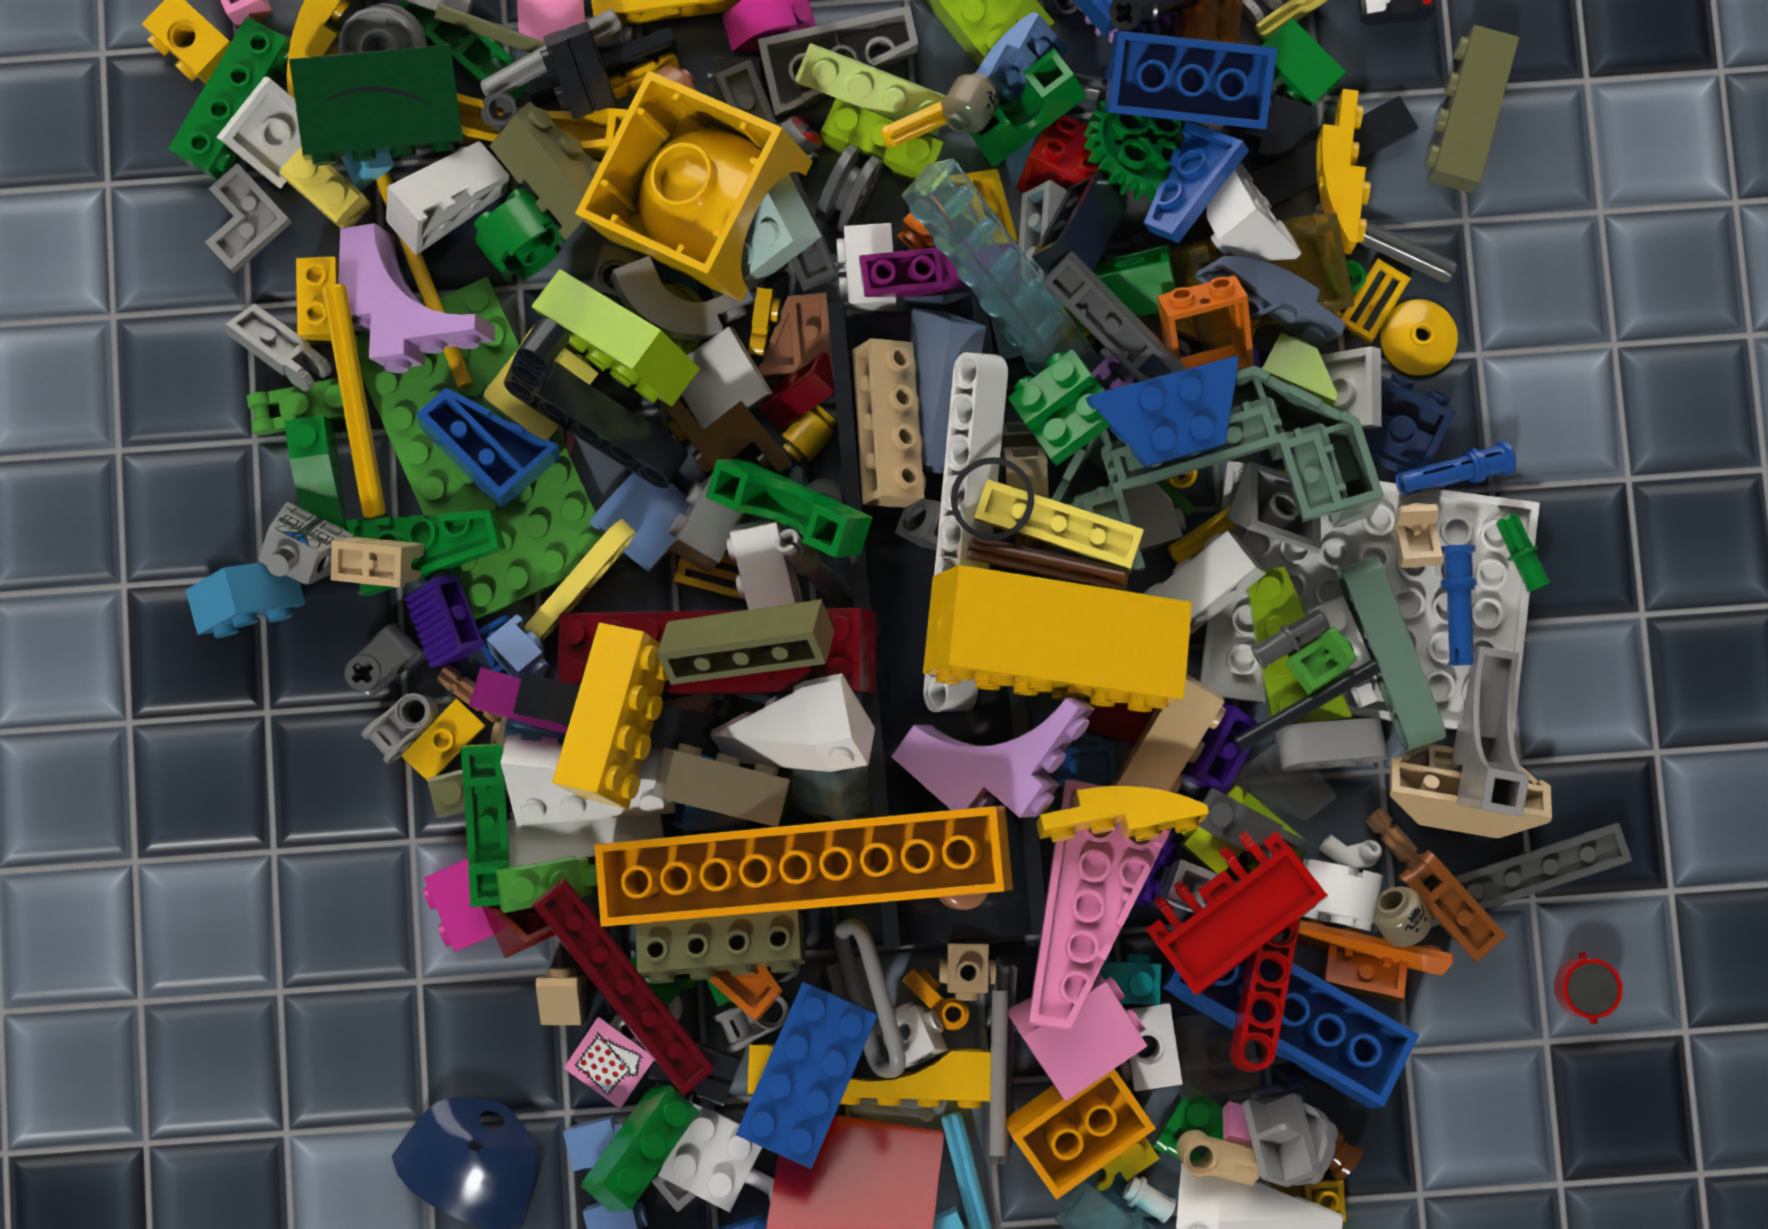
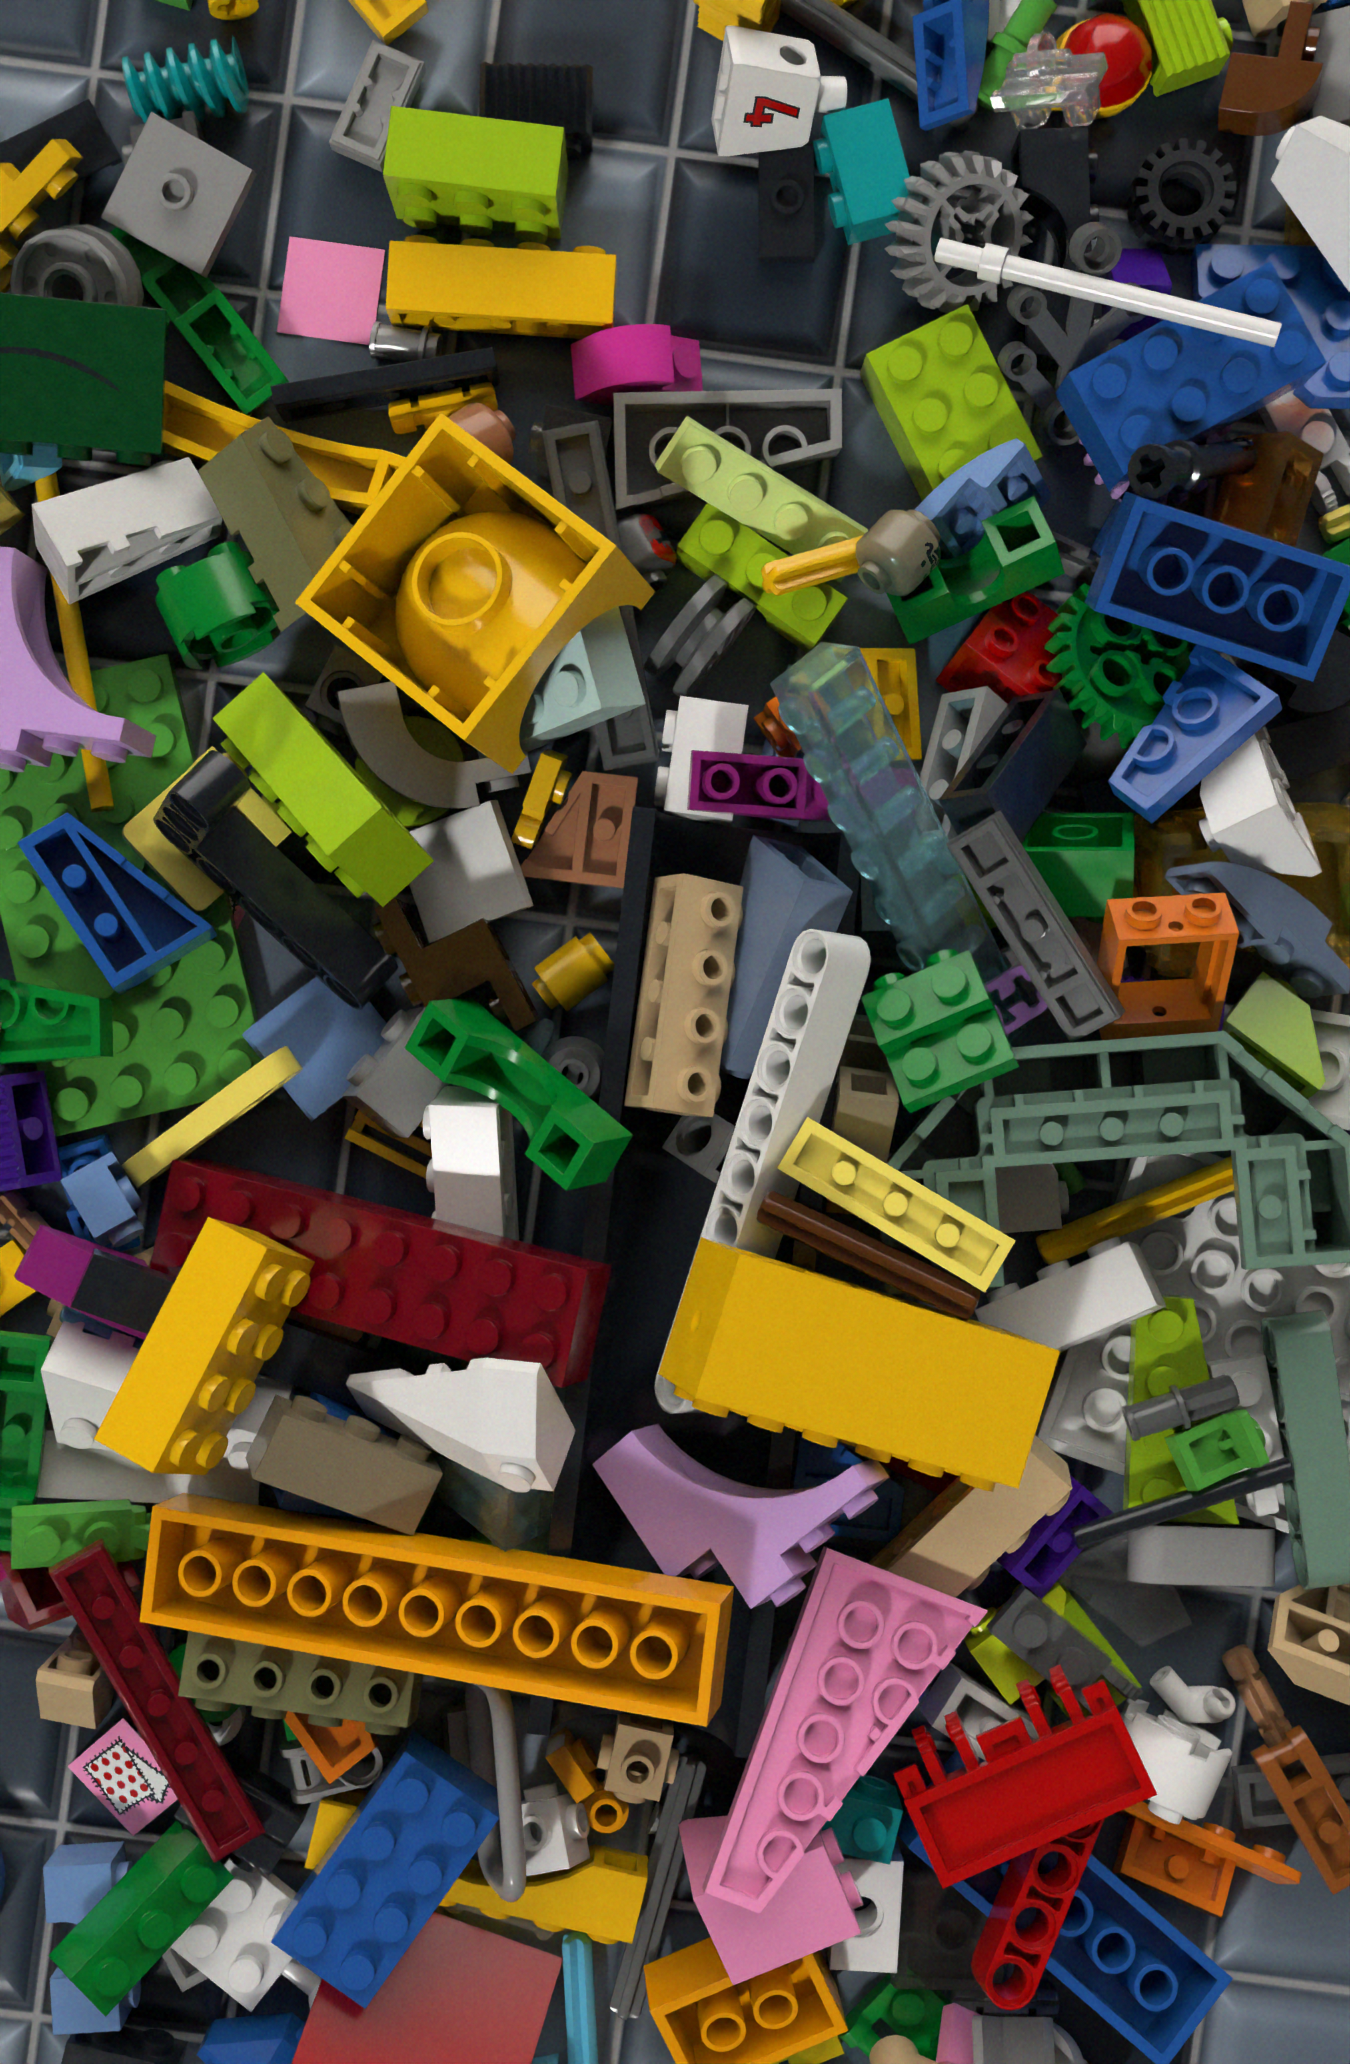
camera: 10 degrees right, 5 degrees up
(487, 29) = (257, 311): olive bar -> none
(494, 101) = (215, 407): dark grey plate -> none
(533, 65) = (314, 353): light grey axle -> none
(579, 69) = (347, 385): black brick -> none
(746, 642) = (414, 1287): olive brick -> none
(800, 391) = (572, 913): dark red slope -> none
(808, 563) = (526, 1172): light grey pin -> none
(954, 493) = (774, 1192): black piece -> none
(998, 1078) = (651, 1910): light grey bar -> none
(1137, 809) = (916, 1623): yellow slope -> none
(1172, 412) = (1093, 1078): blue wing -> none
(1270, 508) = (1194, 1223): light grey slope -> none
(1402, 916) = (1247, 1815): dark tan head -> none

